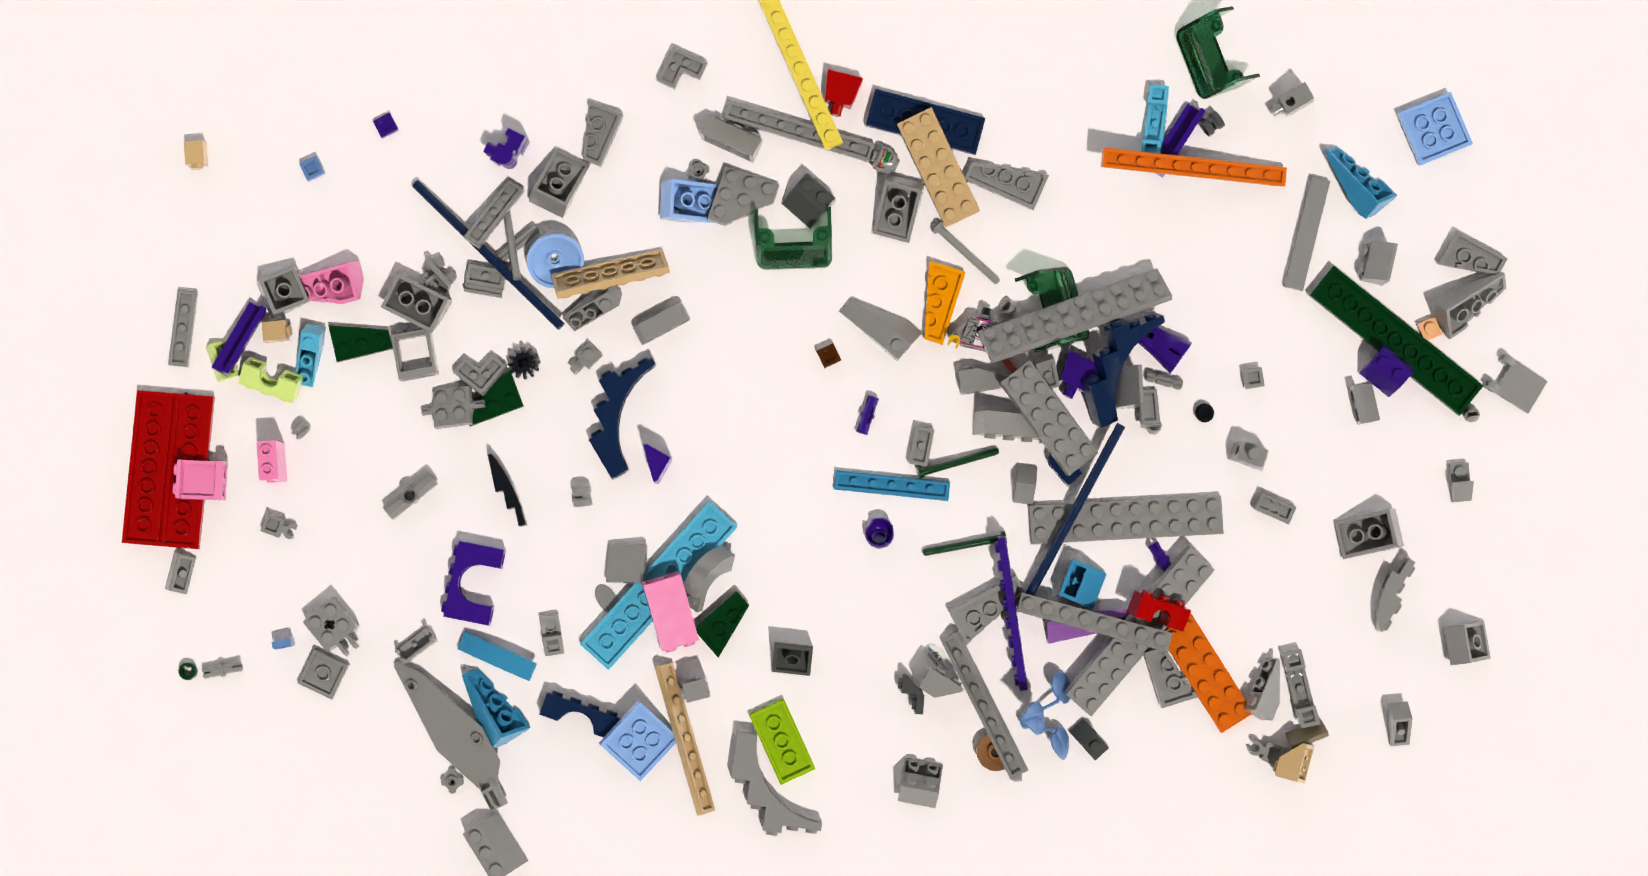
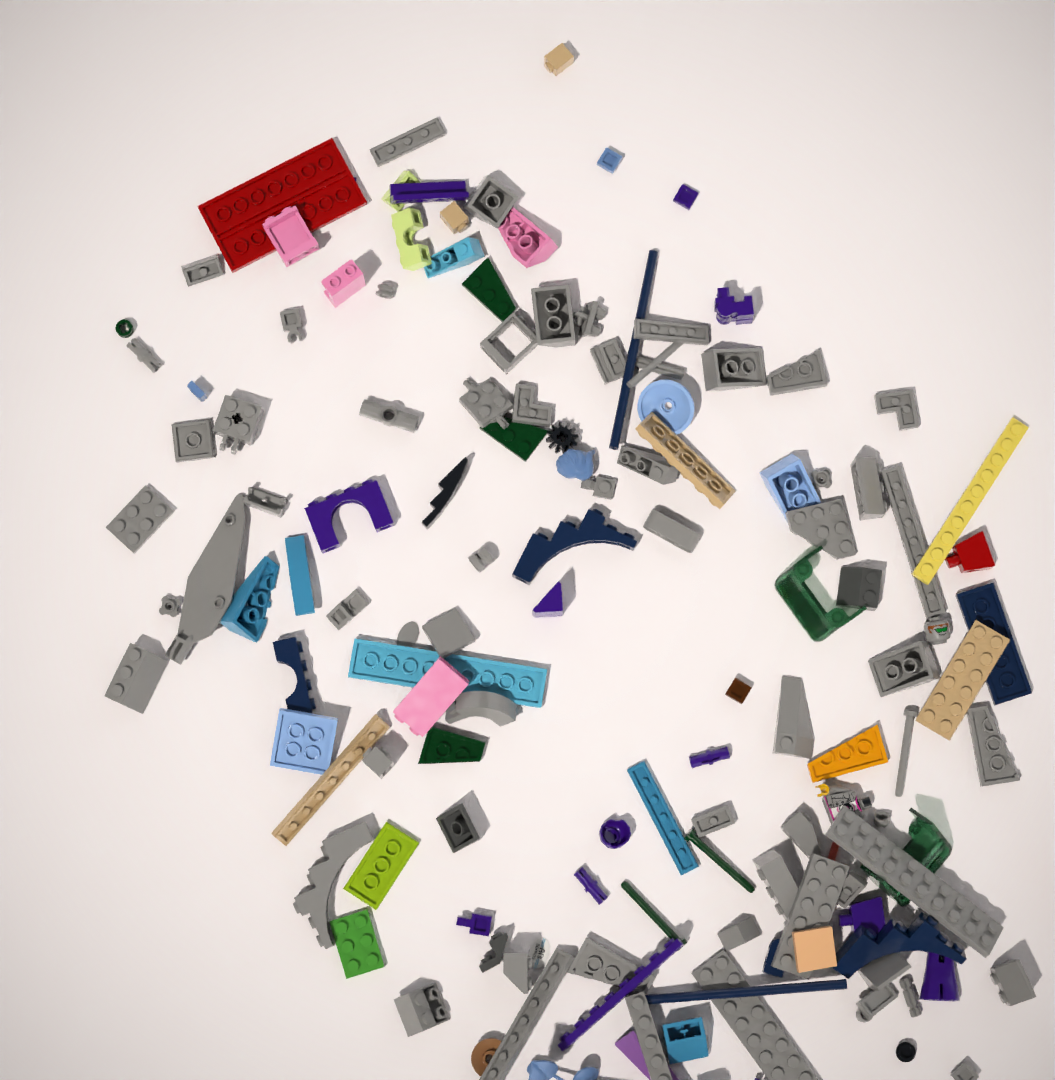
camera: 55 degrees right, 5 degrees down
(361, 760) = (139, 519): none -> light grey plate
(554, 366) = (576, 464): none -> medium blue hair
(833, 802) = (357, 944): none -> bright green plate
(881, 692) = (478, 924): none -> dark purple plate
(909, 580) = (591, 886): none -> dark purple pin
(1077, 432) = (814, 949): none -> light nougat tile
(1205, 290) = (1012, 982): none -> light grey slope

